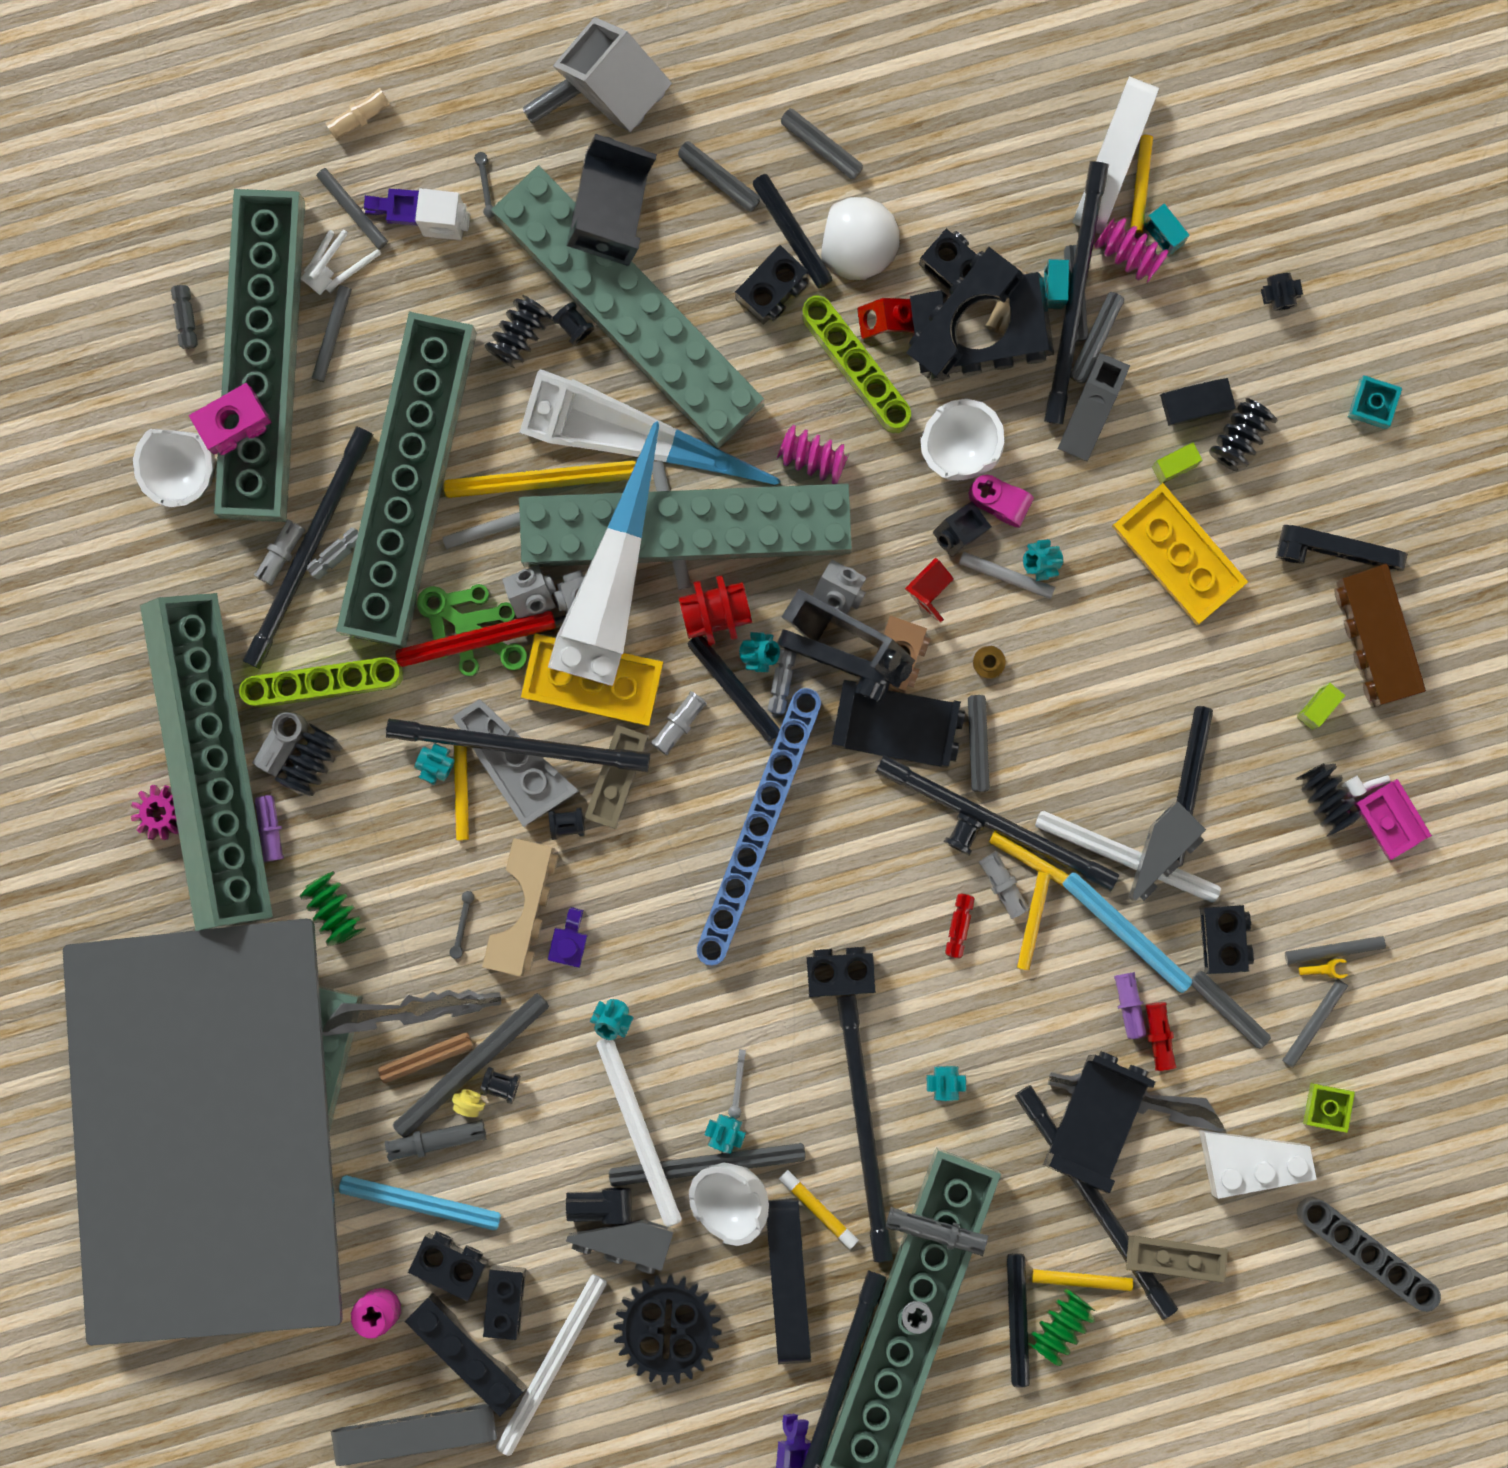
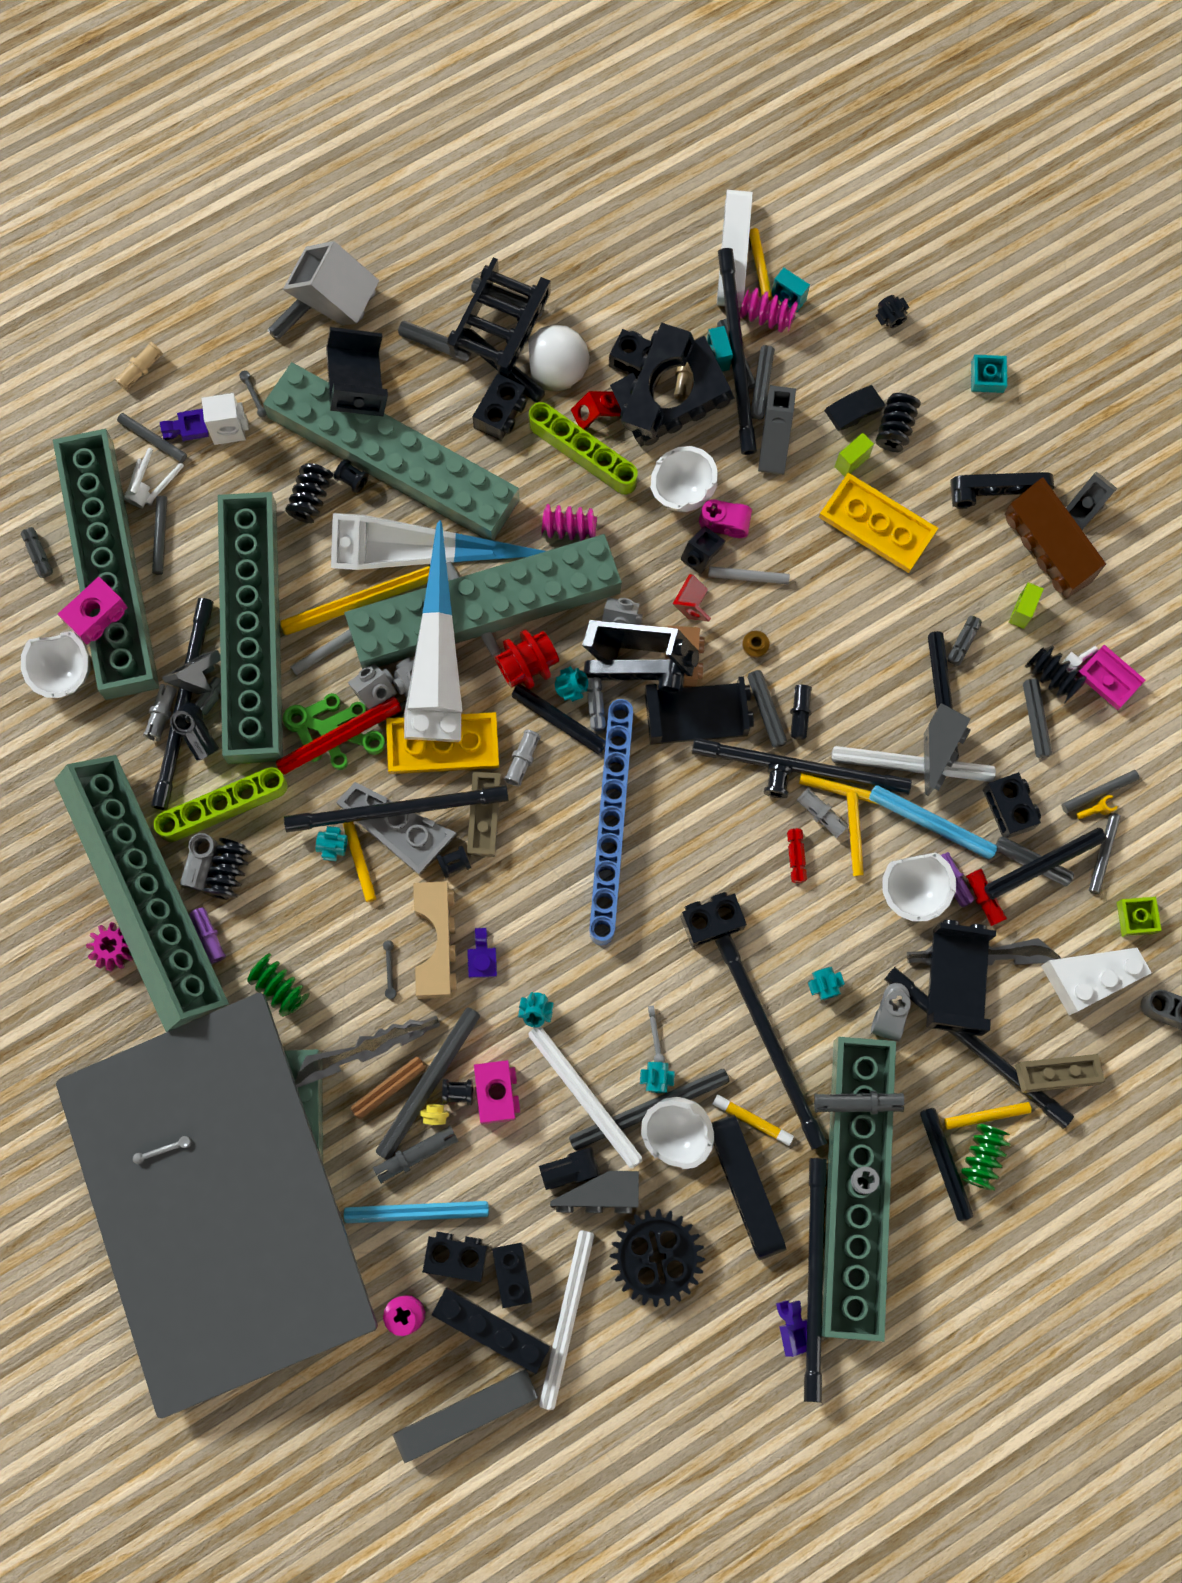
camera: 25 degrees left, 10 degrees down
(185, 1059) = (183, 1142): none -> light grey hinge
(312, 588) = (194, 733): none -> black piece
(324, 519) = (191, 675): none -> dark grey slope
(532, 1116) = (486, 1077): none -> dark pink brick
(834, 180) = (514, 338): none -> black fence
(1009, 1139) = (891, 1016): none -> light grey piece
(1016, 759) = (800, 711): none -> black axle
(1043, 559) = (774, 554): teal gear -> none
(1084, 1005) = (919, 886): none -> white cylinder
(1235, 726) = (964, 640): none -> dark grey axle
(1239, 1018) = (1045, 863): none -> black axle
(1290, 843) = (1037, 718): none -> dark grey axle
(1439, 599) = (1090, 499): none -> dark grey slope

